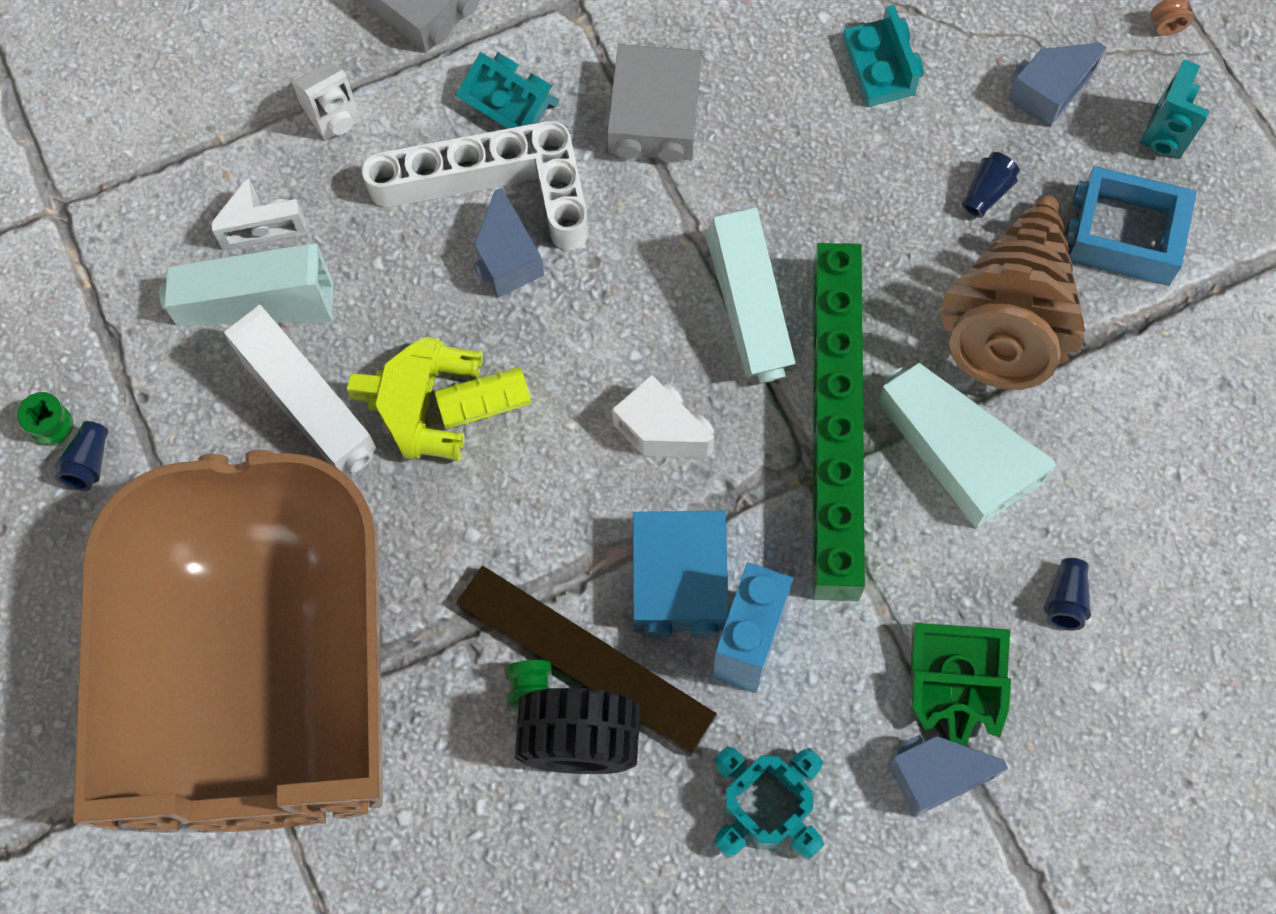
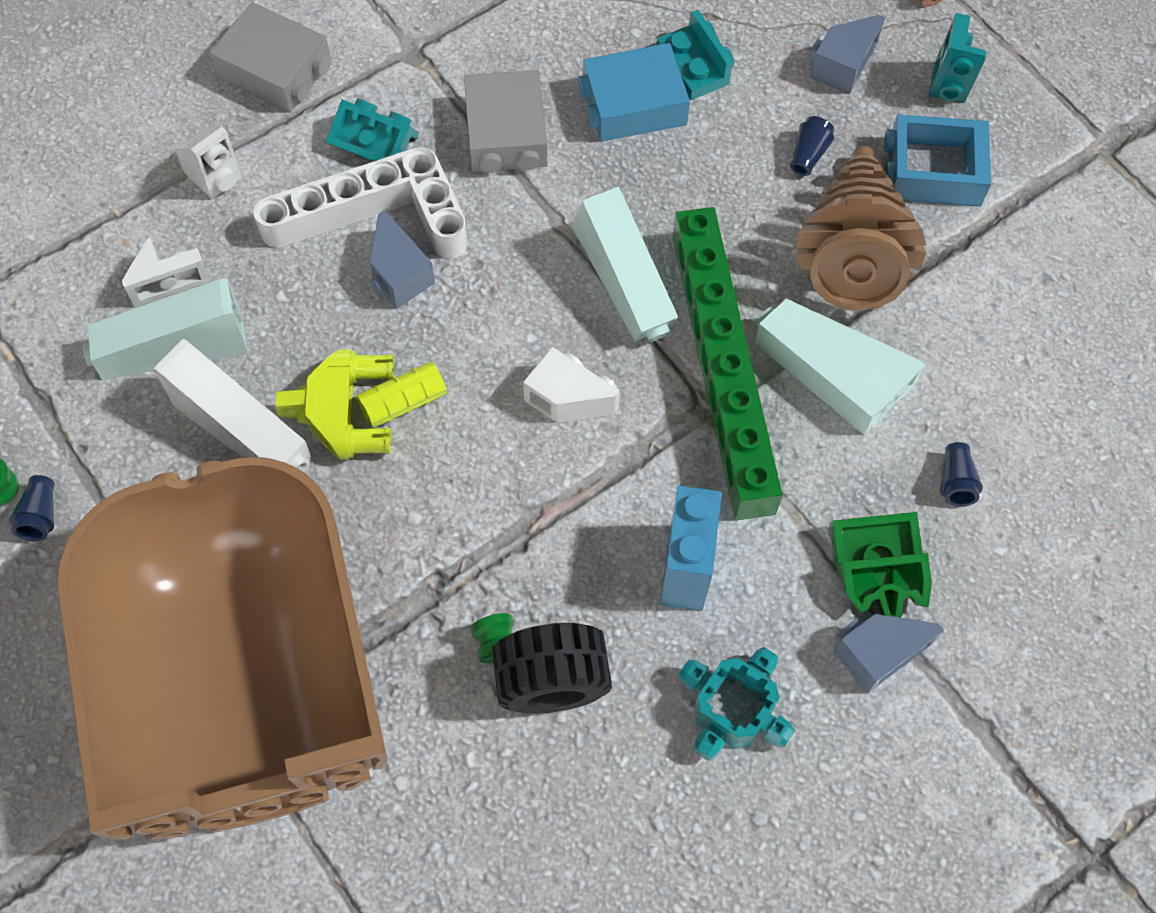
camera: 15 degrees left, 5 degrees down
(585, 658) = (537, 604): dark brown tile -> none
(680, 572) = (613, 515): dark azure brick -> none
(804, 90) = (634, 92): none -> dark azure brick

